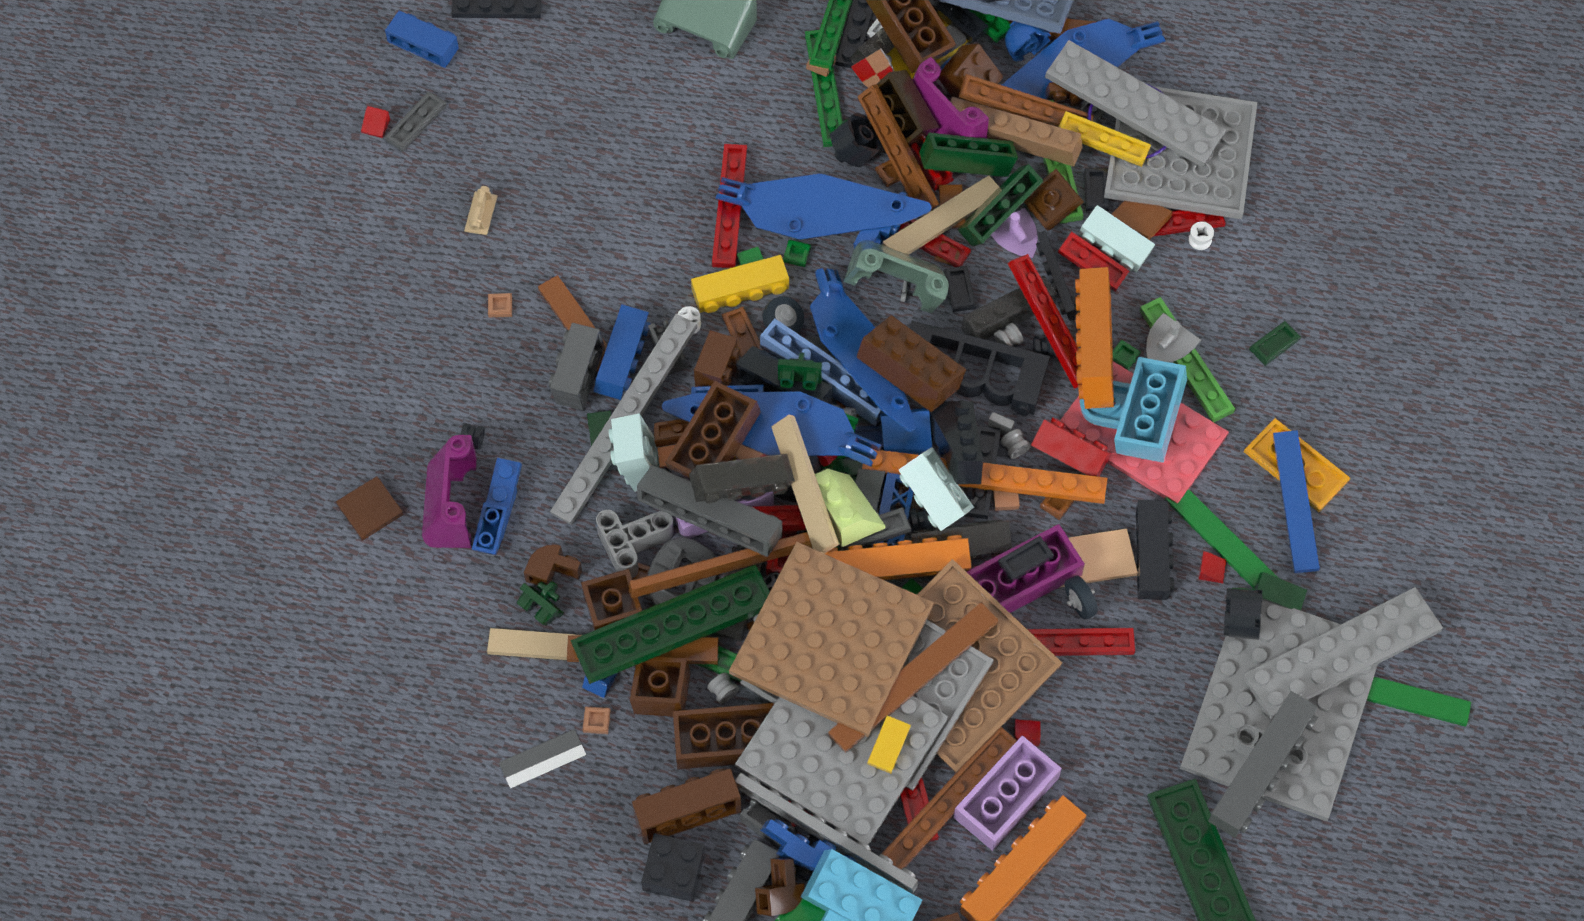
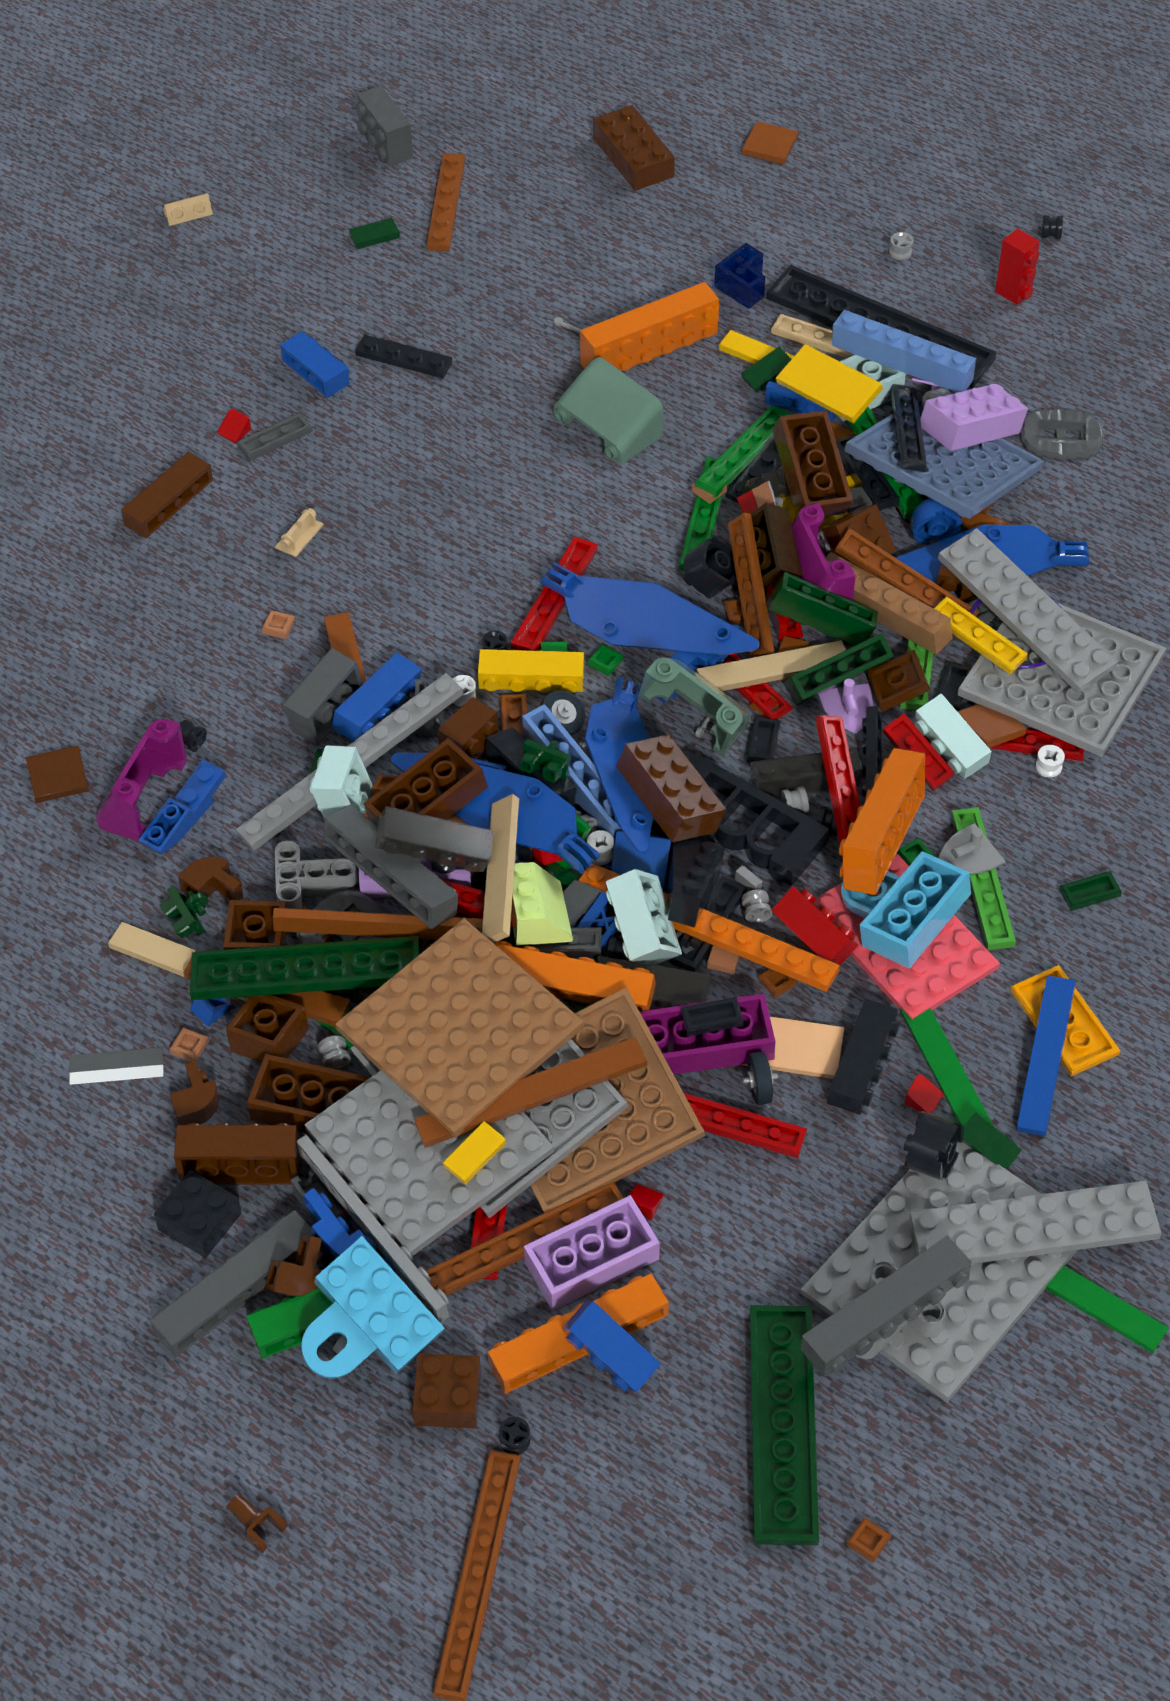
camera: 20 degrees right, 10 degrees down
(346, 209) = (166, 495): none -> reddish brown brick
(628, 770) = (197, 1102): none -> reddish brown brick
(698, 264) = (494, 639): none -> black wheel
(873, 429) = (606, 850): none -> white wheel
(1057, 869) = (610, 1347): none -> blue brick

